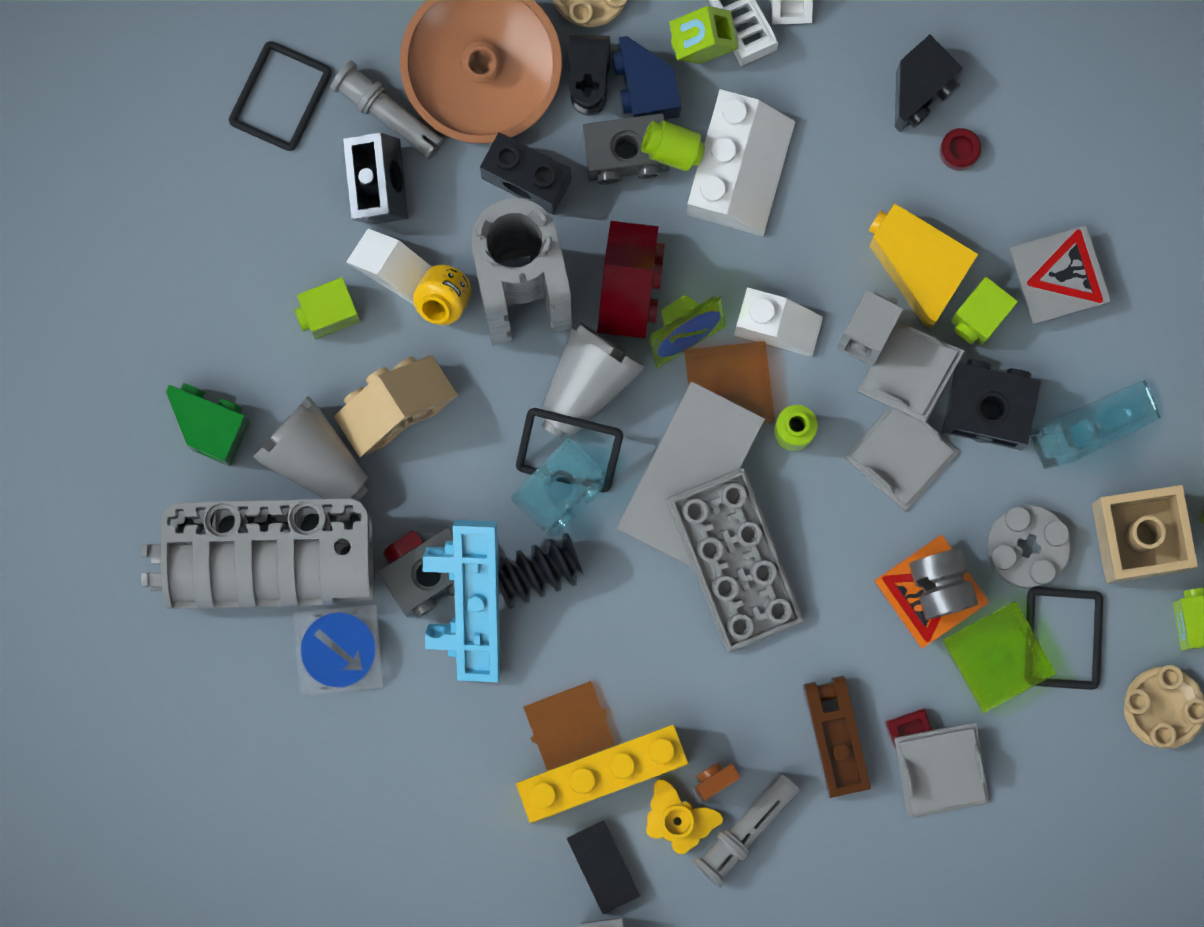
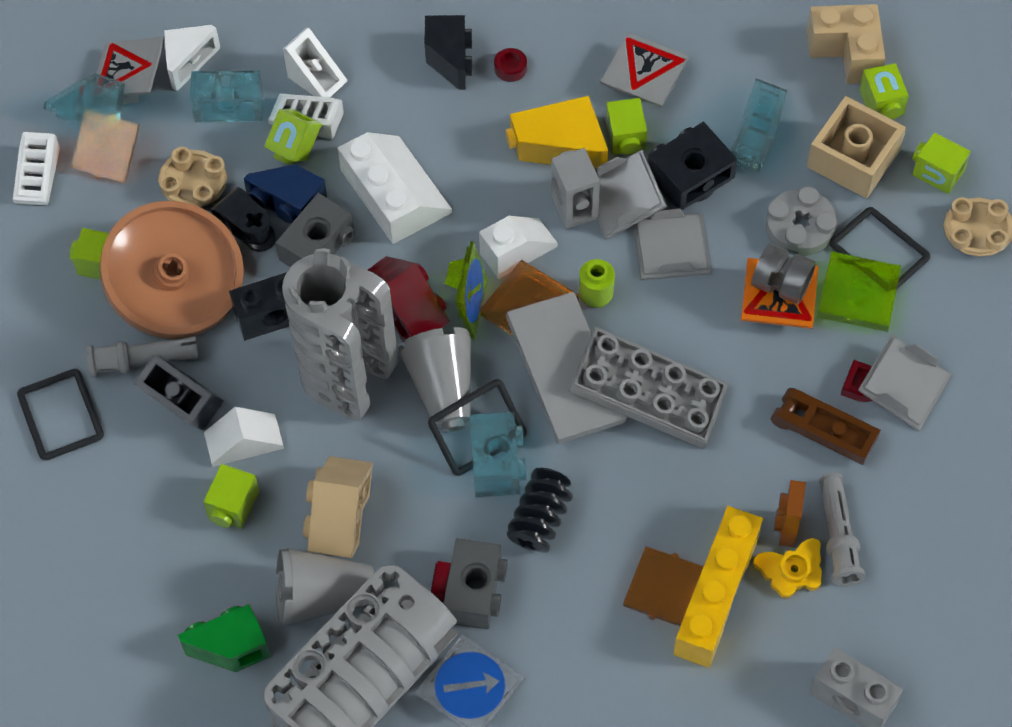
camera: 45 degrees left, 20 degrees down
(442, 295) = (296, 417): yellow head -> none
(475, 630) = (544, 582): medium azure hinge -> none
(603, 867) = (783, 643): black tile -> none
(673, 145) = (345, 197): lime brick -> none

